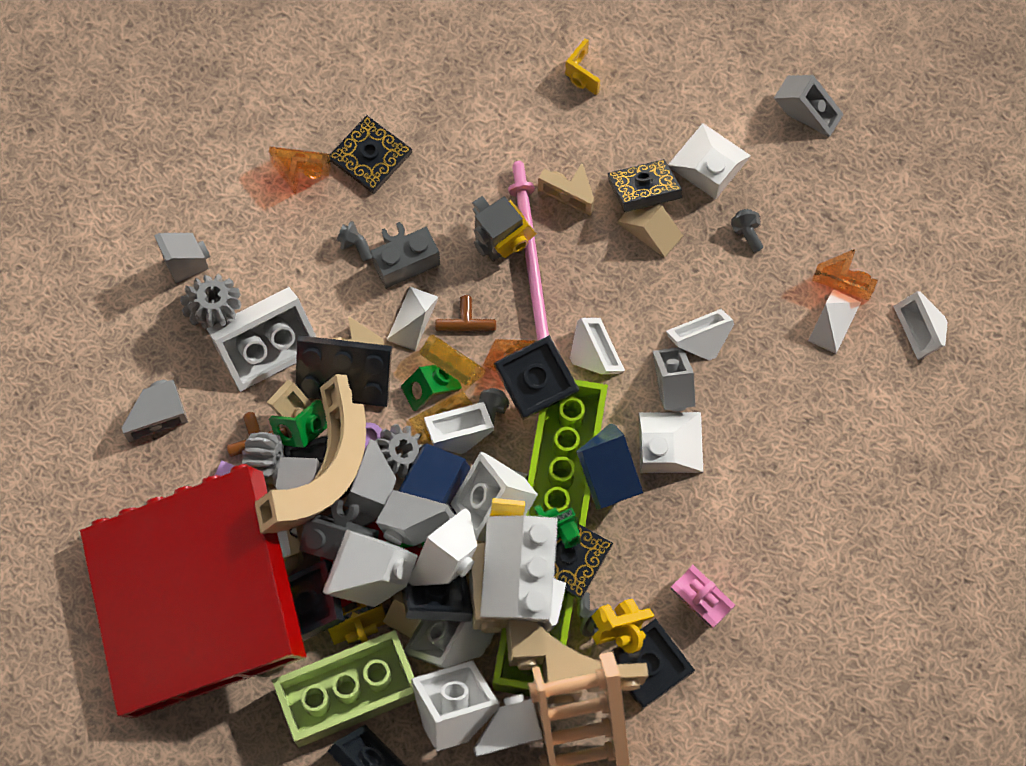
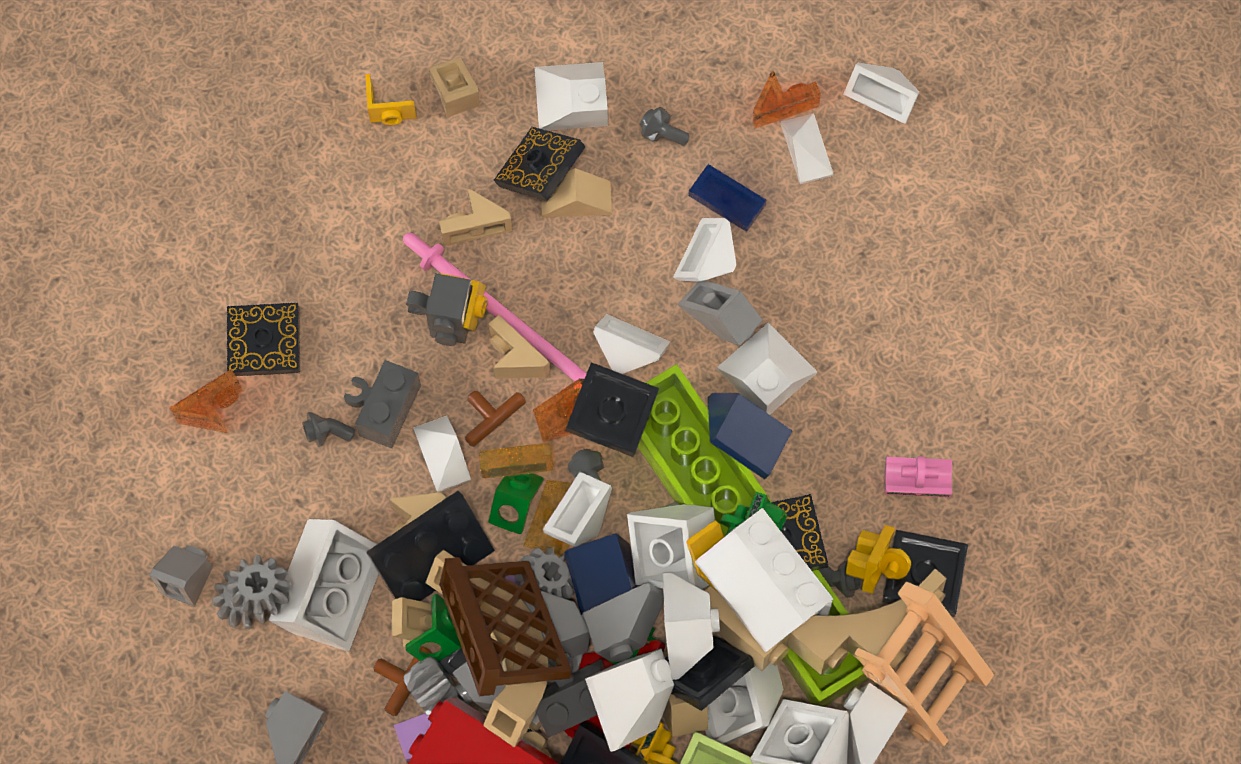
camera: 40 degrees left, 0 degrees up
(306, 441) = (475, 625): none -> reddish brown fence
(515, 298) = (522, 357): none -> tan slope
(636, 93) = (455, 86): none -> tan slope
(749, 309) = (727, 197): none -> clear blue plate

